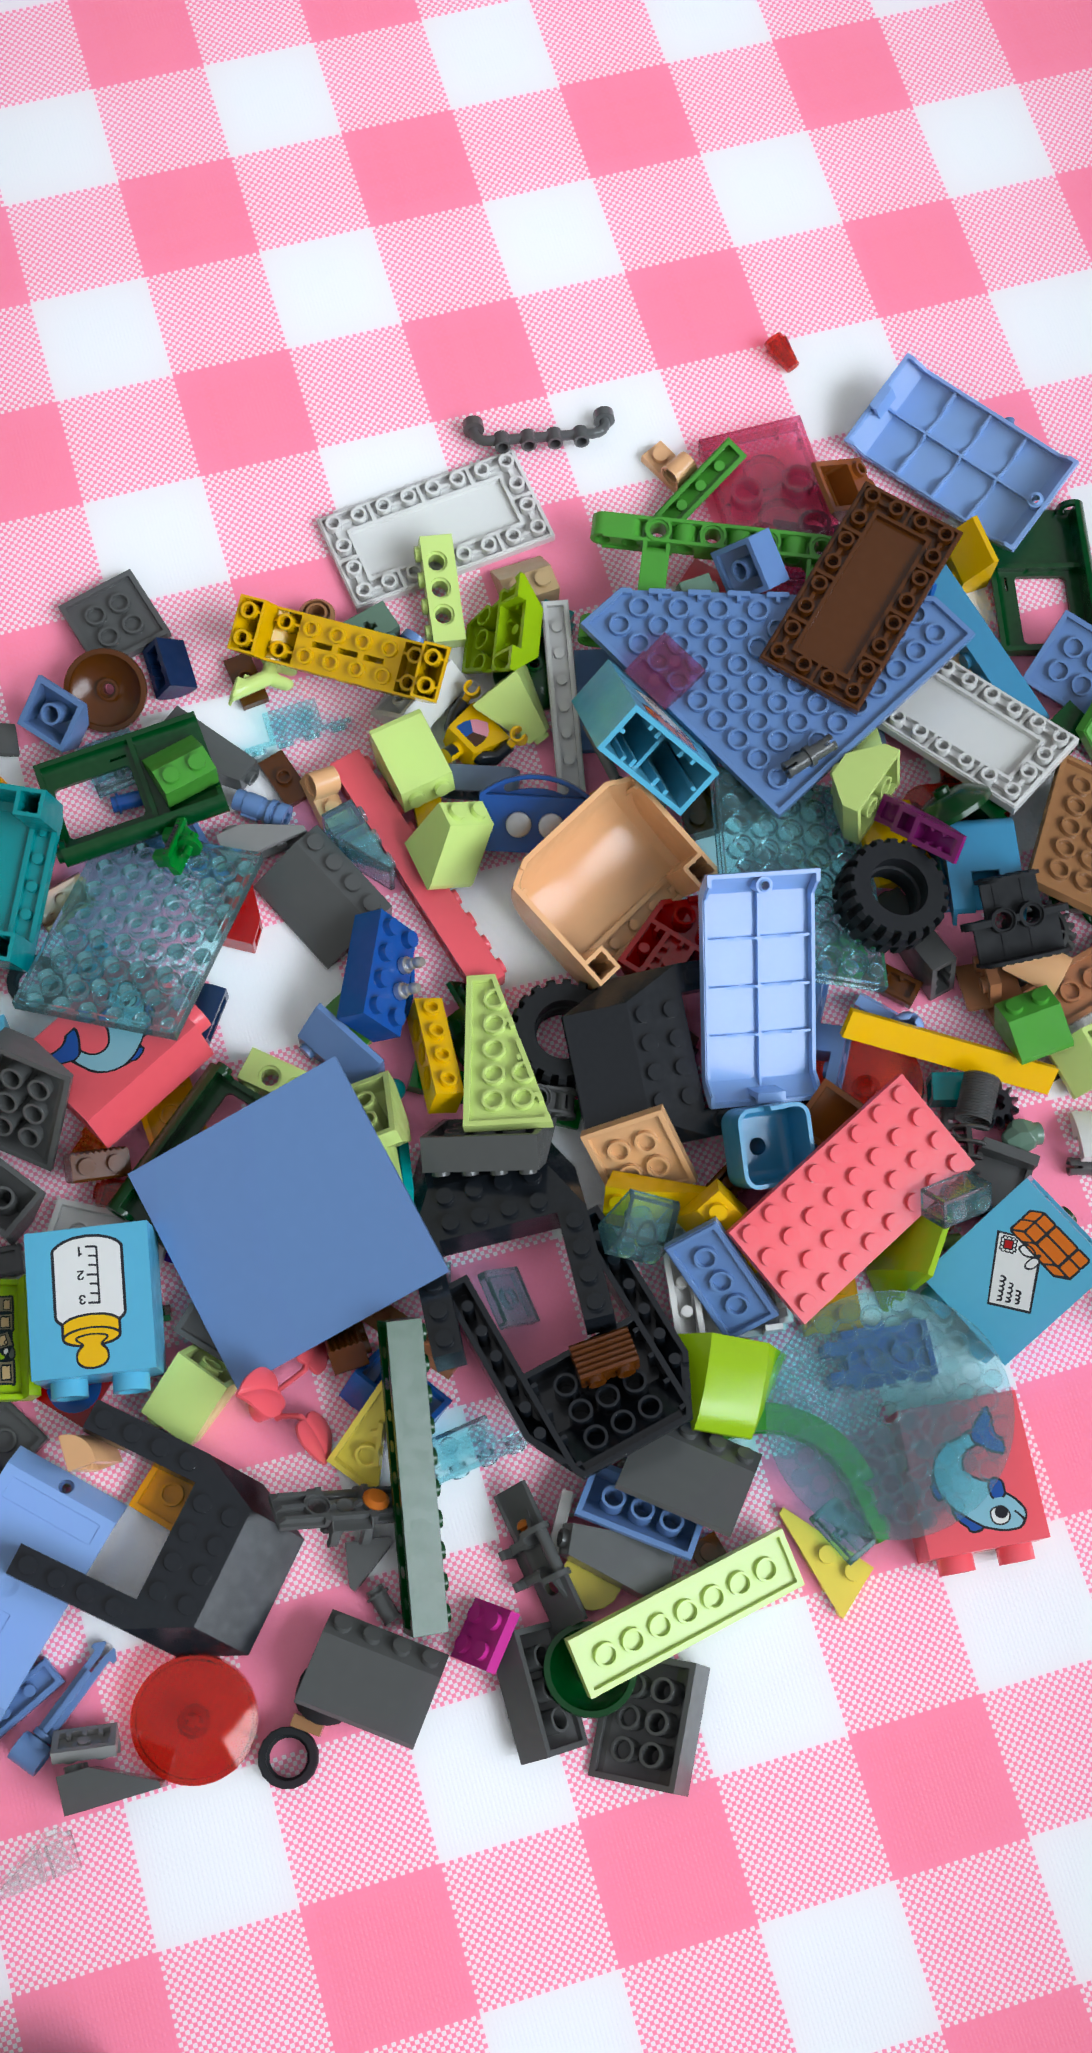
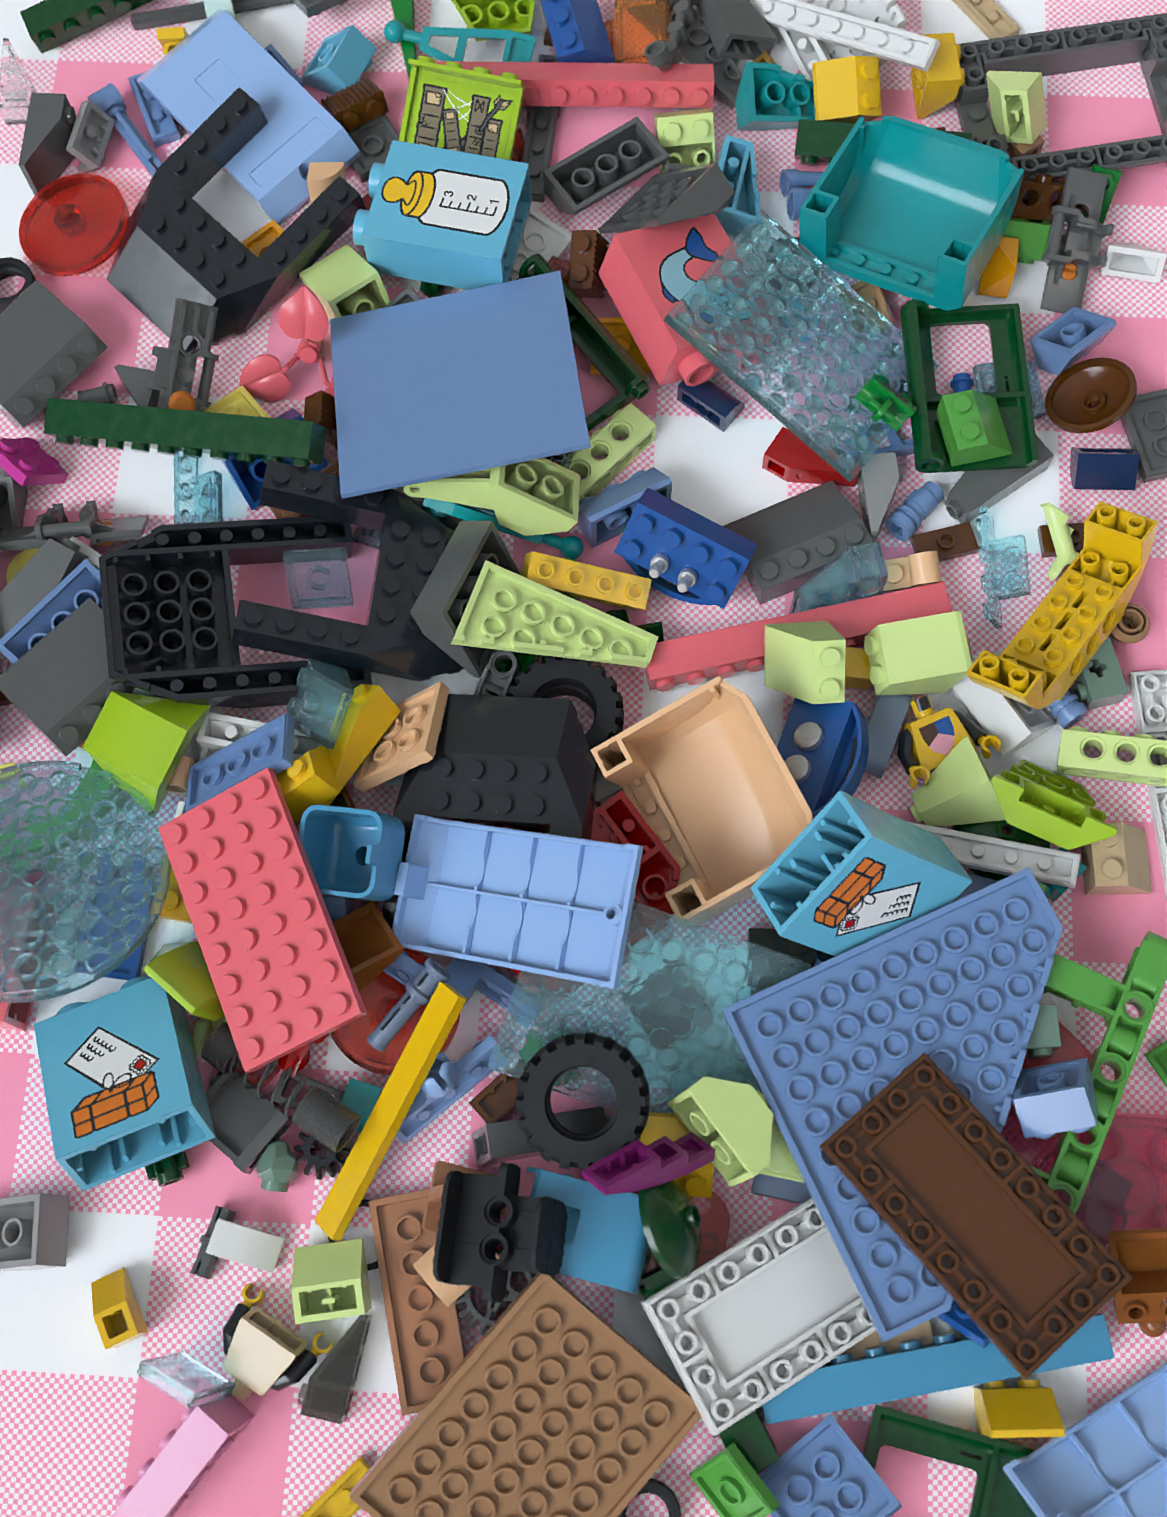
camera: 120 degrees right, 0 degrees up
(604, 1358) = (203, 615): reddish brown brick -> none
(665, 671) = (938, 938): clear pink slope -> none
(809, 756) = (780, 1066): dark grey pin -> none
(853, 1056) = (417, 993): none -> sand blue pin
(956, 1199) = (209, 1027): clear light blue brick -> none
(1032, 1025) = (384, 1221): bright green slope -> none

